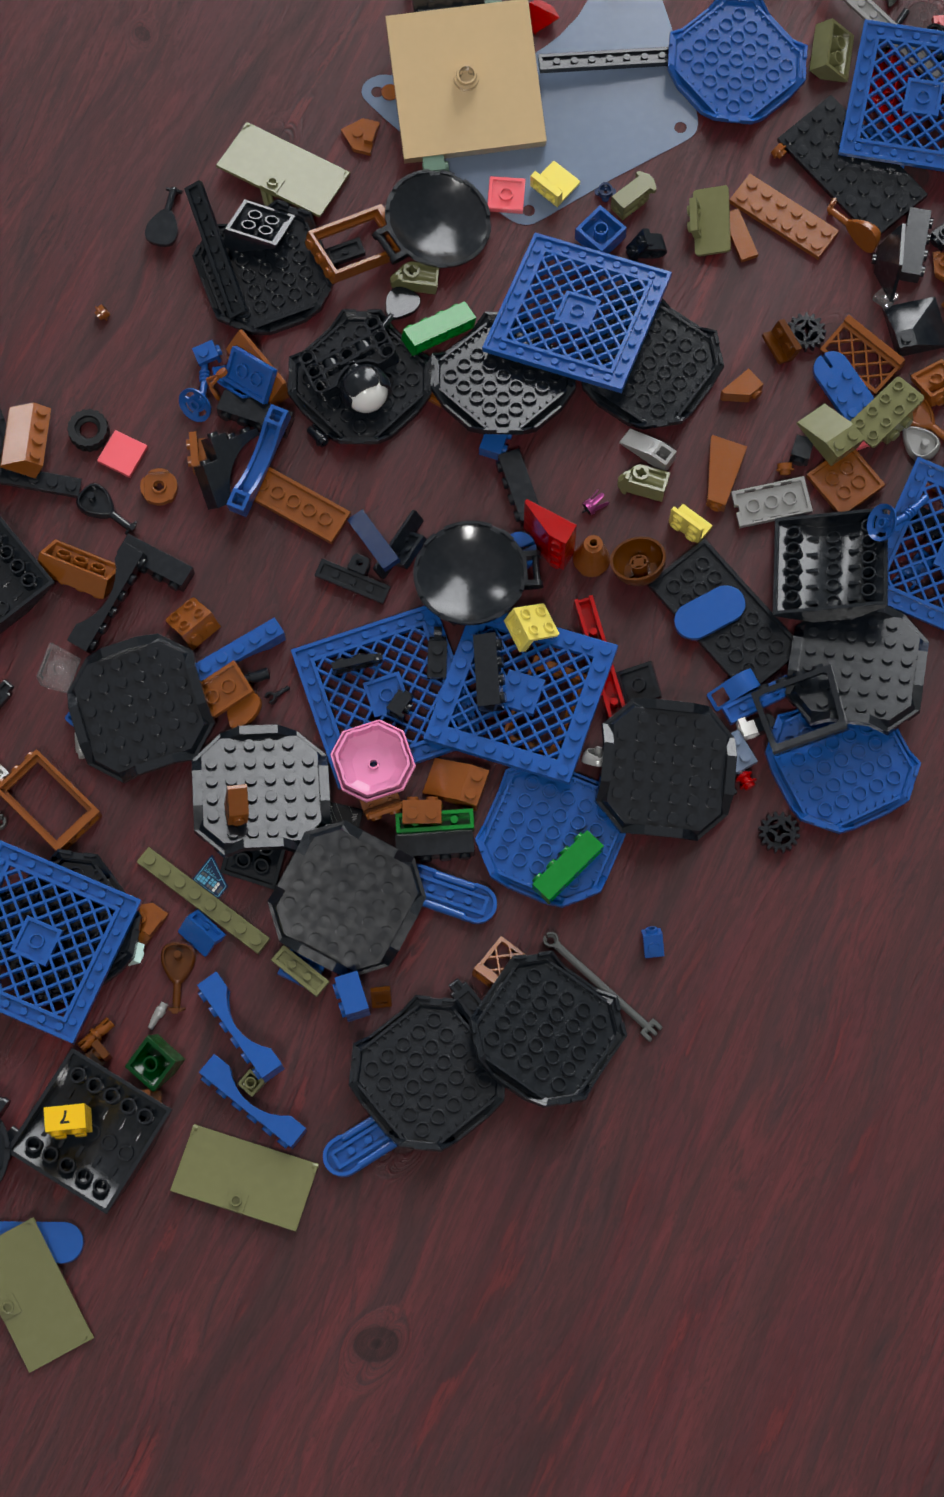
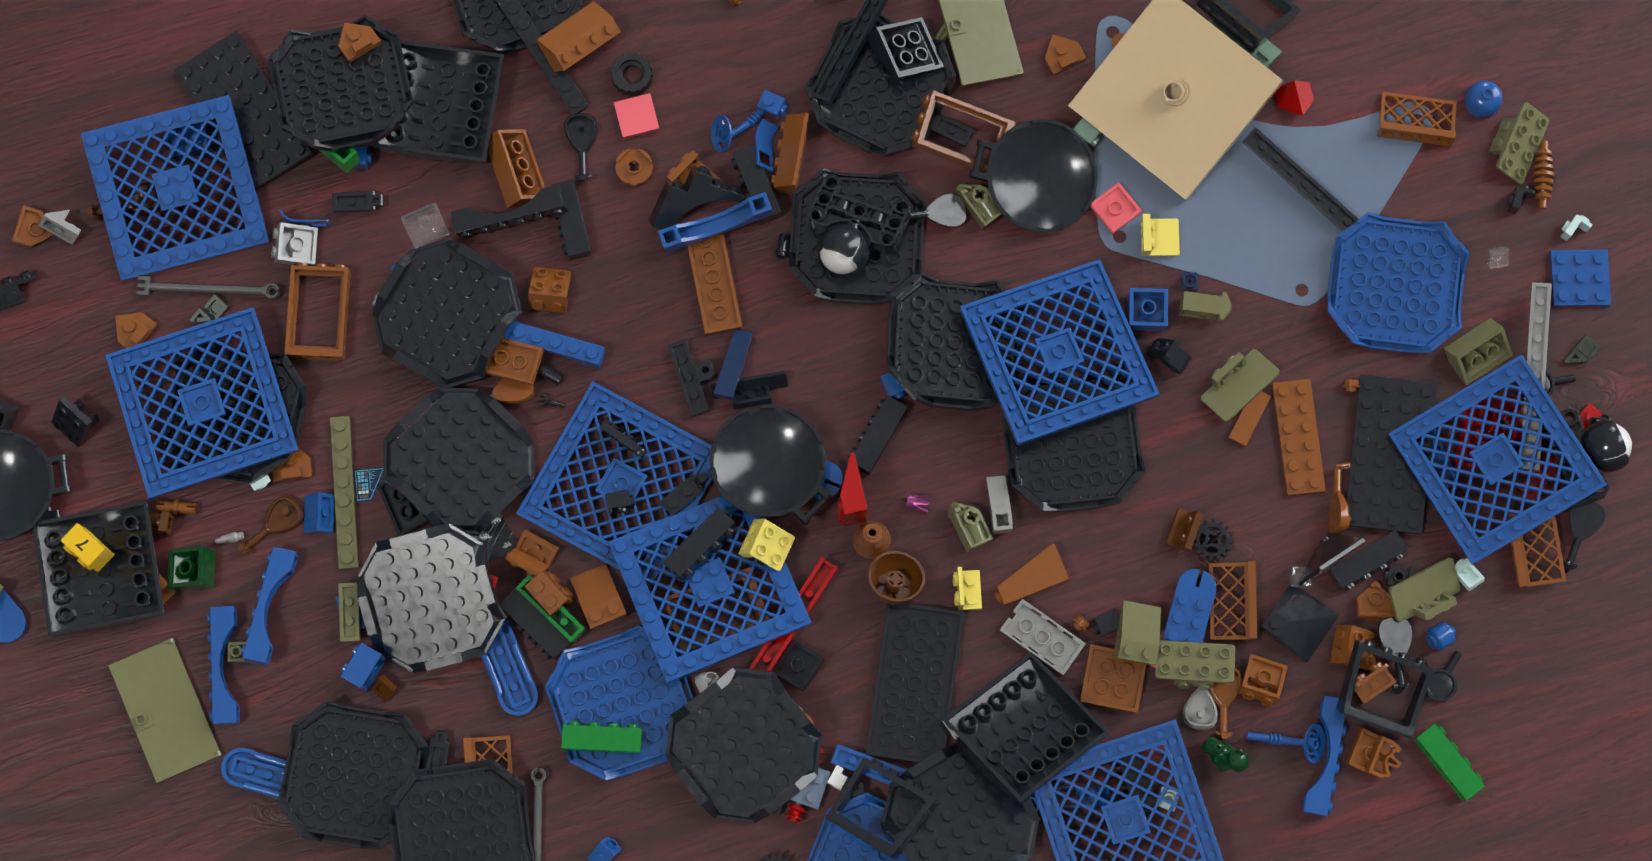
camera: 45 degrees right, 5 degrees up
(219, 374) = (761, 130): dark orange piece -> none
(236, 804) = (423, 454): dark orange slope -> none
(250, 374) = (779, 153): blue plate -> none
(370, 743) = (552, 502): bright pink rock -> none
(438, 328) = (951, 257): brick -> none
(709, 612) = (905, 668): blue tile -> none
(736, 687) = (863, 741): blue piece -> none
(743, 388) = (1118, 533): dark orange slope -> none
(887, 523) = (1091, 743): blue dish -> none

